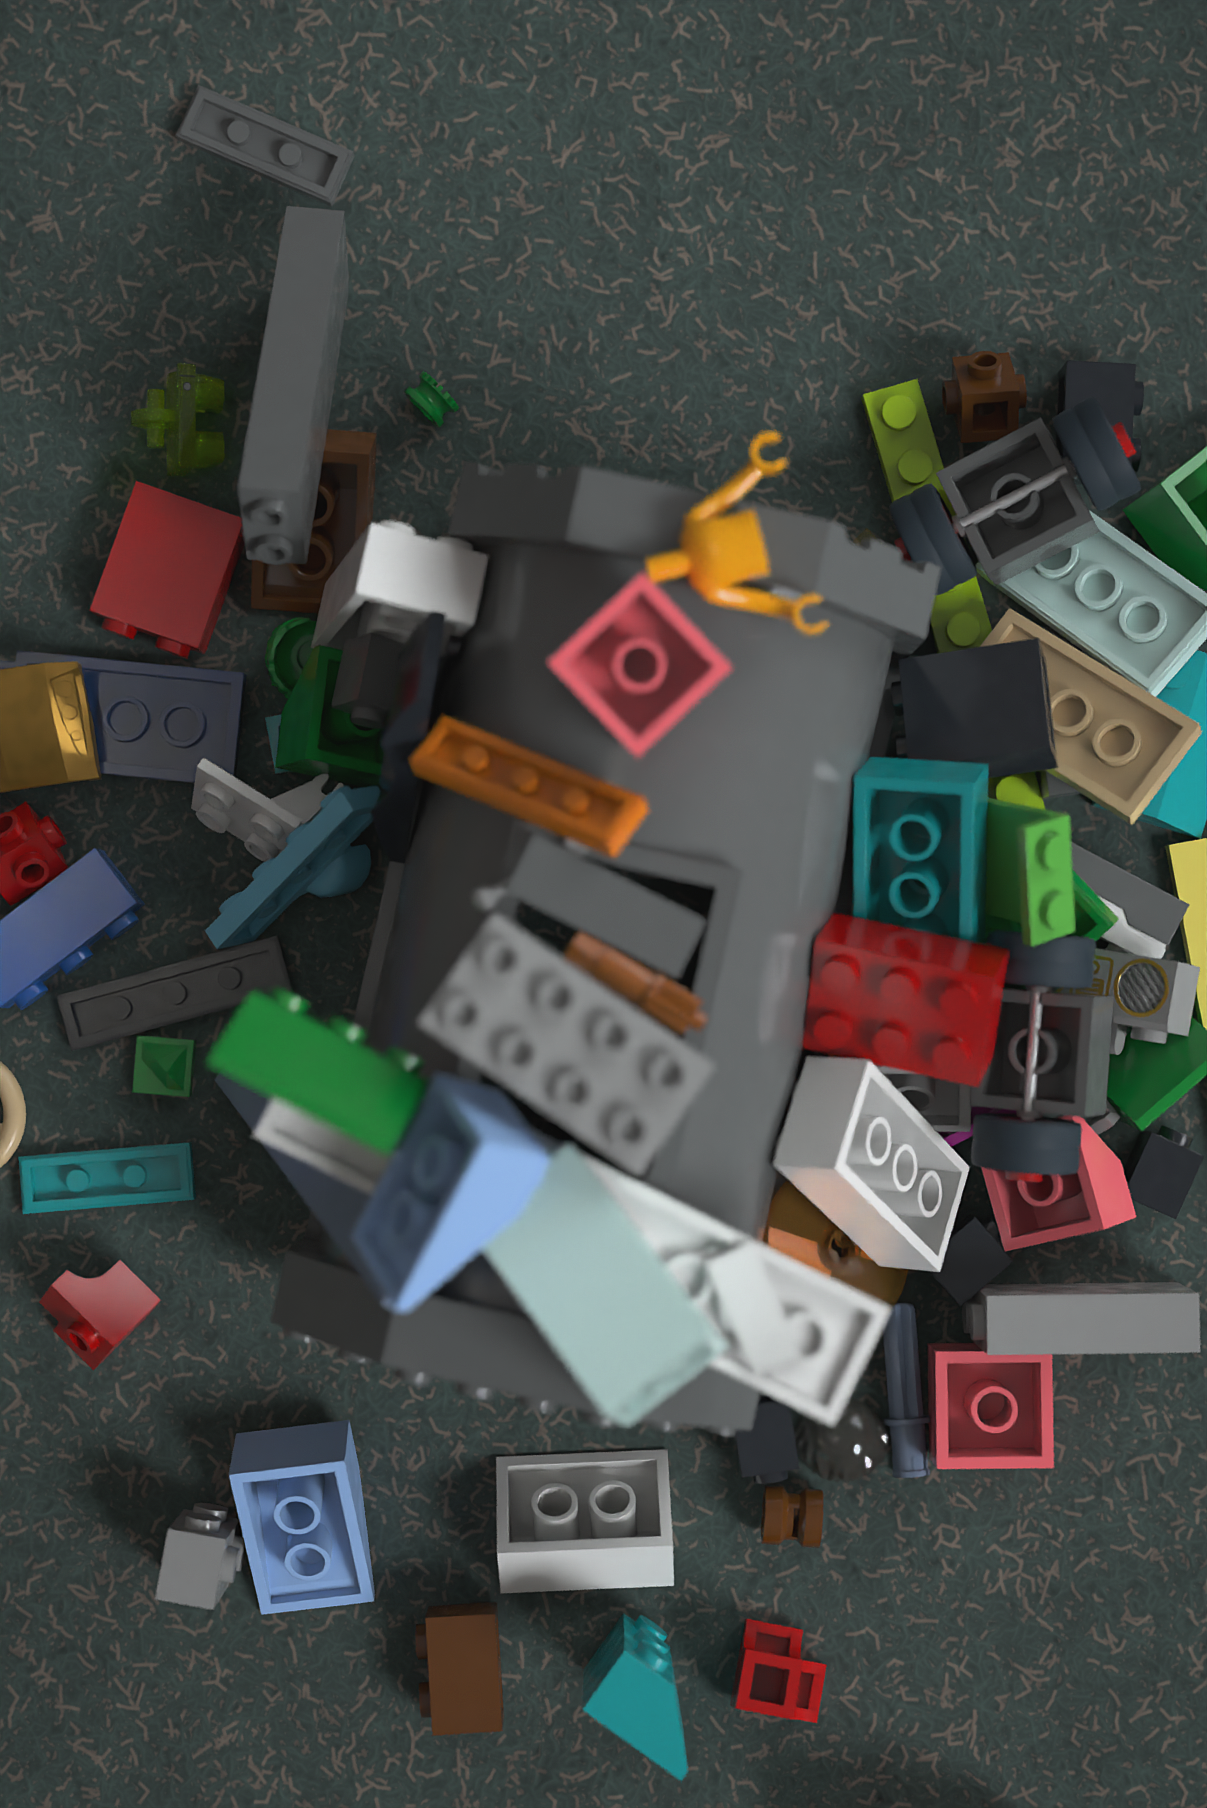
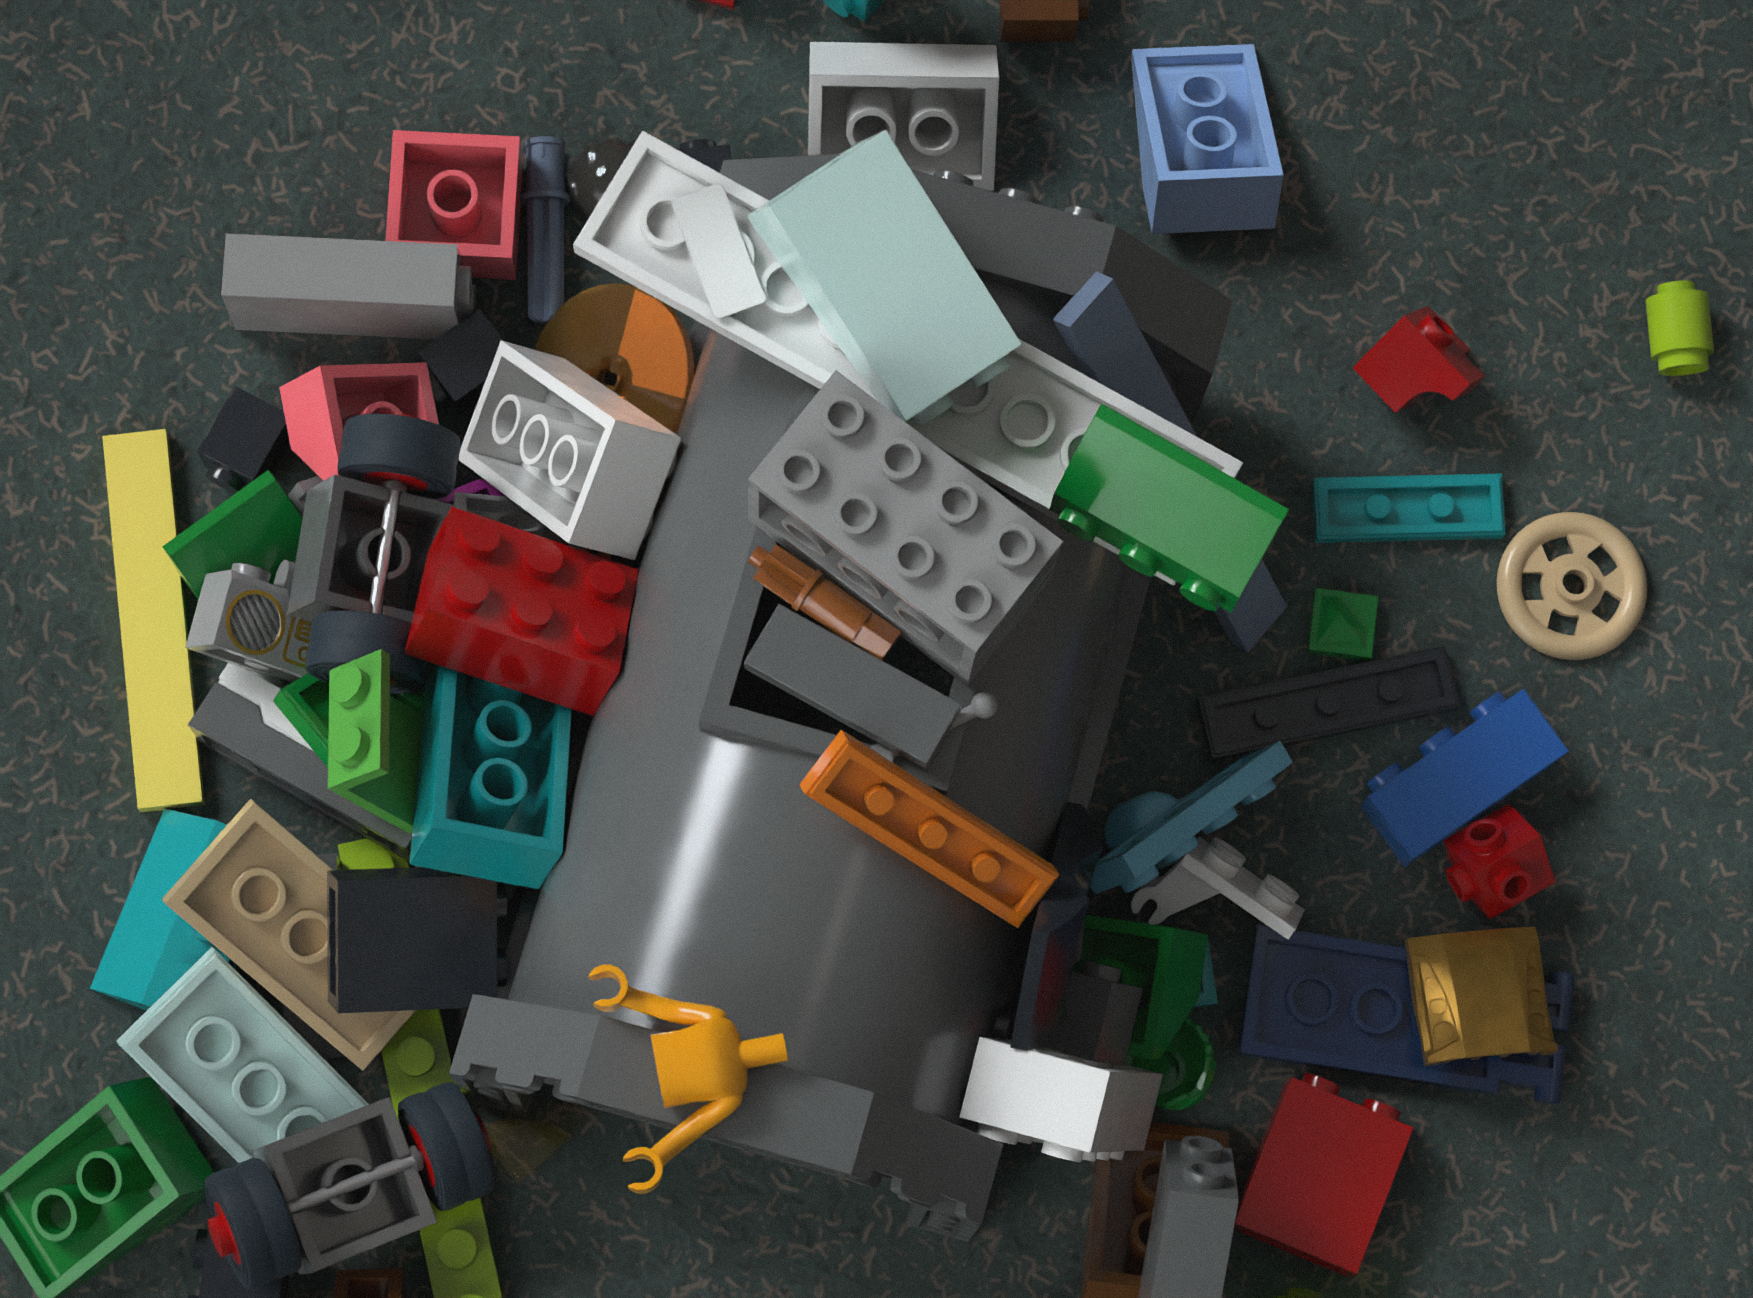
camera: 175 degrees right, 10 degrees down
(200, 1556) = (1316, 98): light grey brick -> none
(447, 1188) = (1036, 378): light blue slope -> none
(639, 665) = (800, 935): coral brick -> none
(792, 1516) = (677, 106): reddish brown wheel -> none

